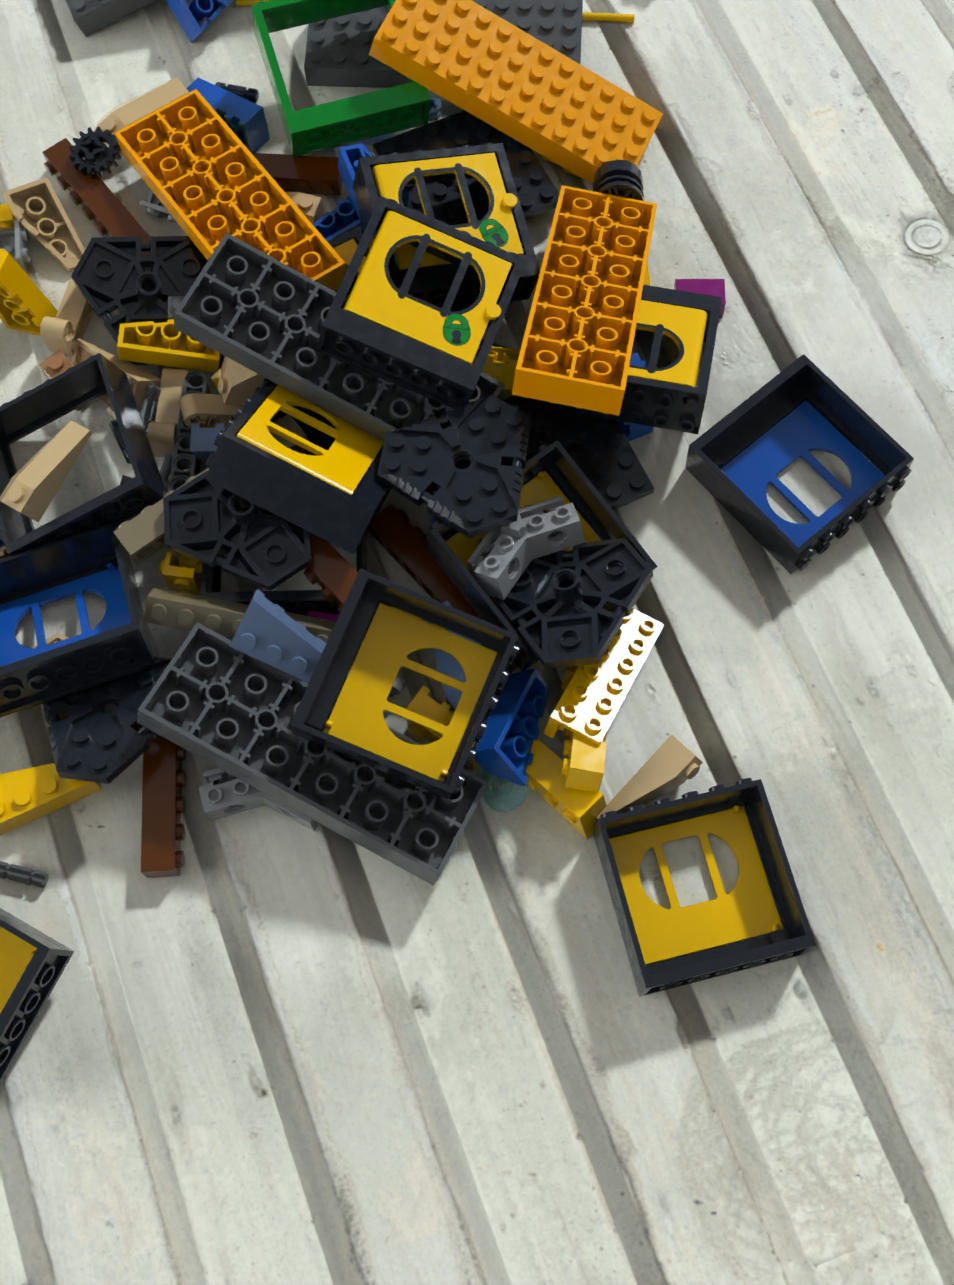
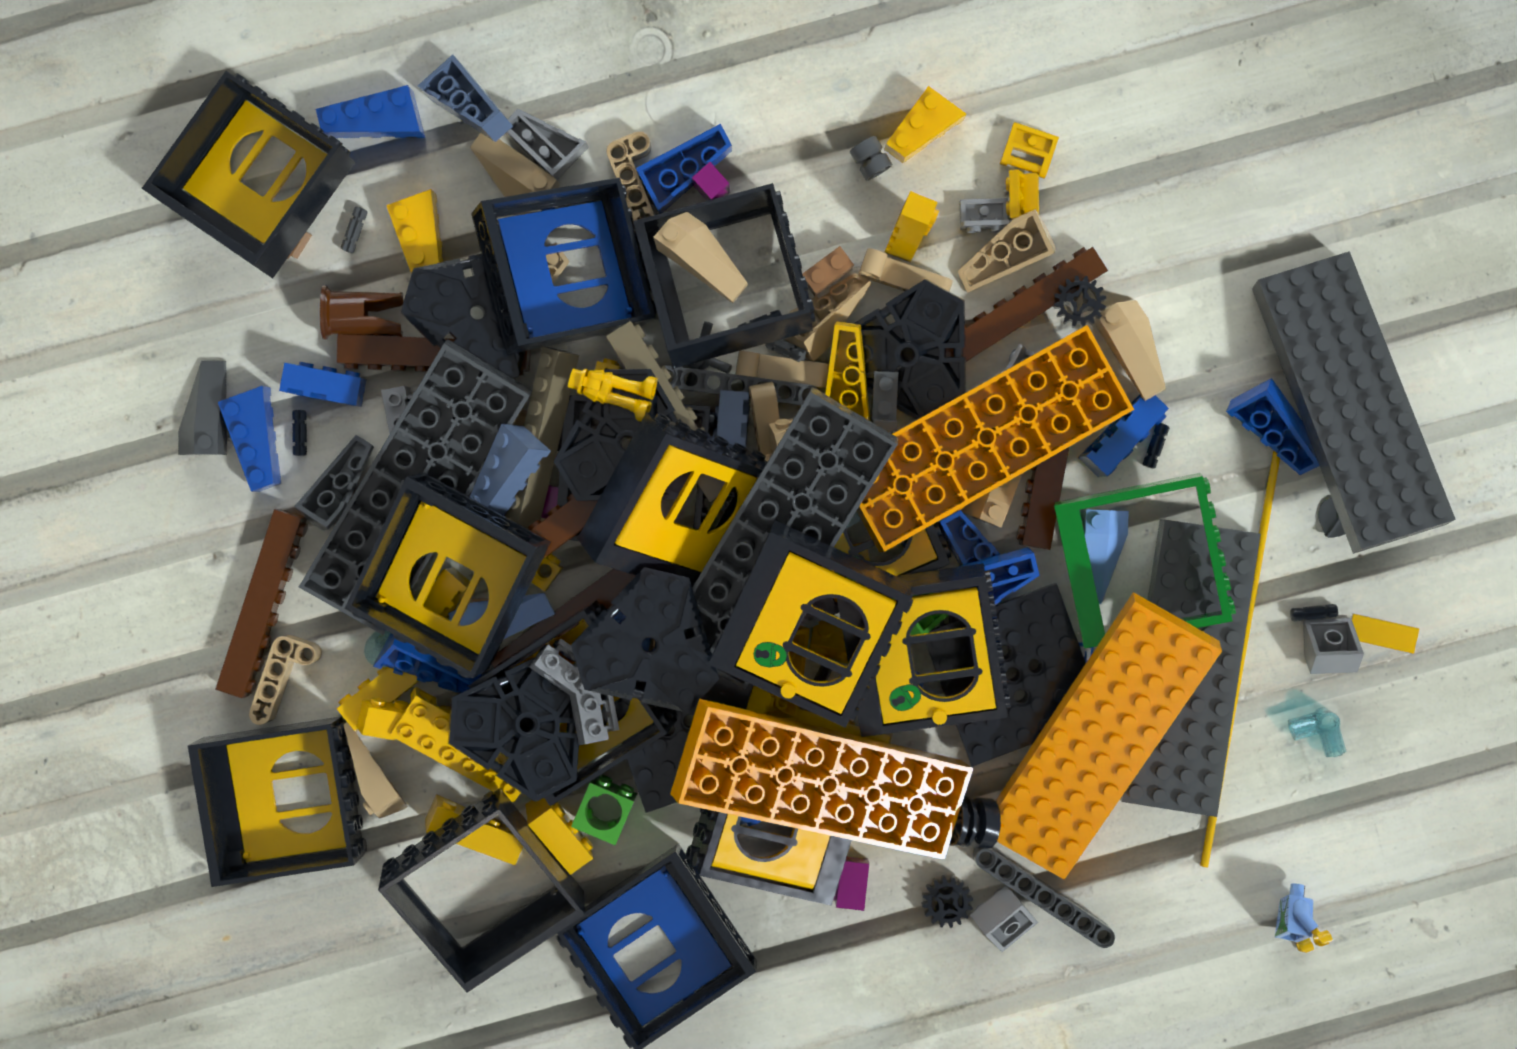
camera: 95 degrees right, 20 degrees up
(116, 856) = (348, 313): none -> reddish brown piece
(180, 540) = (599, 385): none -> yellow piece
(201, 886) = (323, 383): none -> blue wedge
(246, 1032) = (203, 424): none -> dark grey wedge
(261, 914) = (299, 432): none -> black axle
(265, 965) = (253, 436): none -> blue wedge
(324, 857) = (334, 488): none -> dark grey wedge
(468, 936) = (261, 603): none -> reddish brown brick
(558, 905) = (279, 681): none -> tan beam
(664, 512) = (605, 830): none -> bright green brick
(683, 136) = (1052, 903): none -> dark grey beam
(688, 578) = (555, 831): none -> yellow wedge
(701, 668) = (490, 839): none -> yellow wedge
(703, 214) = (942, 909): none -> black gear
(710, 166) = (1003, 918): none -> light grey slope
(800, 595) = (510, 937): none -> black door

